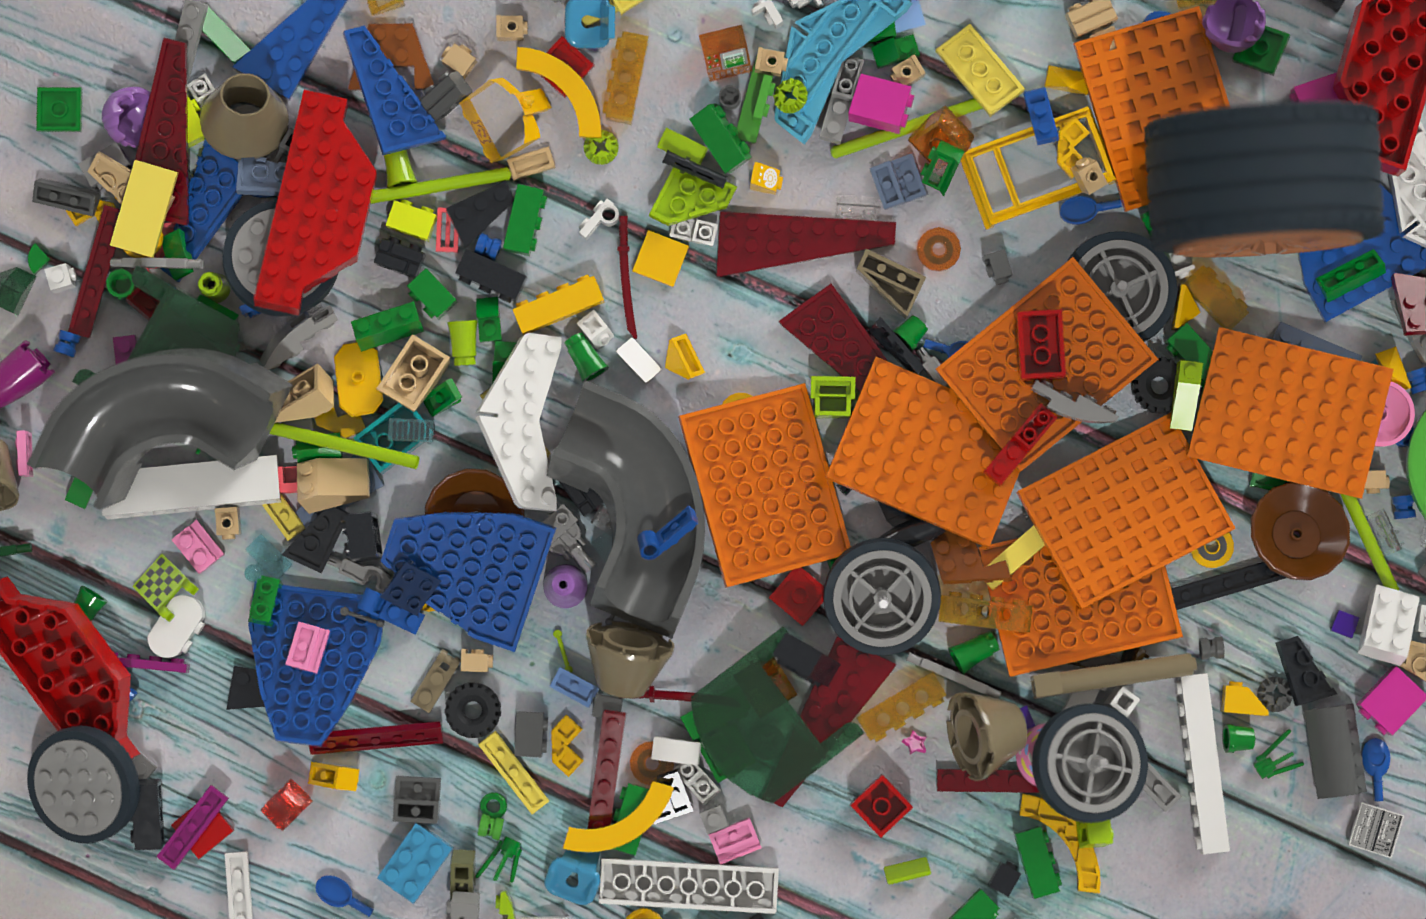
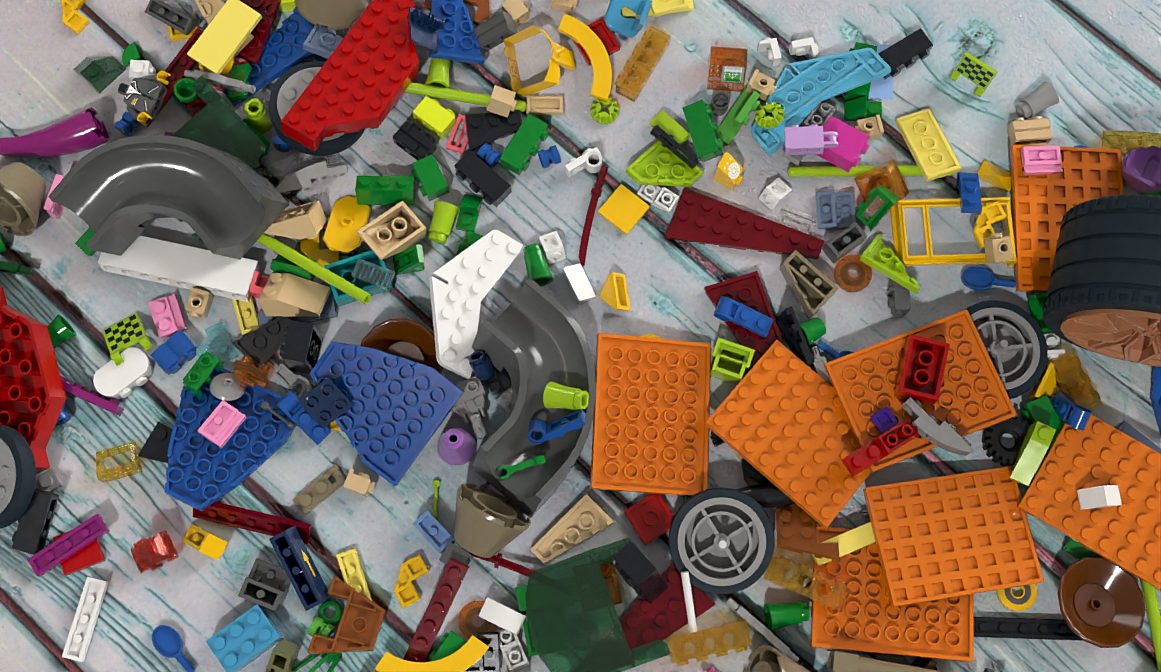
camera: 15 degrees right, 10 degrees down
(78, 308) = (145, 96): none -> dark grey torso
(214, 733) = (120, 471): none -> clear yellow tile
(223, 585) = (174, 353): none -> blue brick
(296, 604) = (226, 387): none -> light grey piece
(314, 584) = (249, 375): none -> clear orange hips
(368, 129) = (424, 28): none -> dark blue hinge
(447, 771) = (300, 568): none -> dark blue brick
(460, 698) = (331, 513): black tyre -> none
(483, 181) = (501, 101): none -> tan brick
(529, 734) = (383, 560): dark grey brick -> none
(529, 809) = (358, 624): none -> dark orange wing
(557, 225) = (549, 156): none -> blue wheel
(558, 305) = (529, 218): yellow brick -> none
(564, 493) = (481, 365): none -> dark blue brick
(633, 596) = (537, 460): none -> green piece
(666, 499) = (564, 397): none -> lime plant
(724, 628) = (574, 527): none -> tan wing
(824, 184) = (774, 193): none -> white bracket
(831, 342) = (743, 316): none -> blue plate
(841, 116) = (808, 140): none -> lavender brick
(867, 672) = (689, 601): none -> white bar
(918, 219) = (844, 242): none -> dark grey brick
(968, 226) = (885, 262): none -> lime wing
(1016, 412) = (883, 420): none -> dark purple tile
(1111, 52) = (1041, 160): none -> bright pink plate
(1216, 338) = (1070, 411): none -> blue plate
(1268, 421) = (1099, 497): none -> white slope

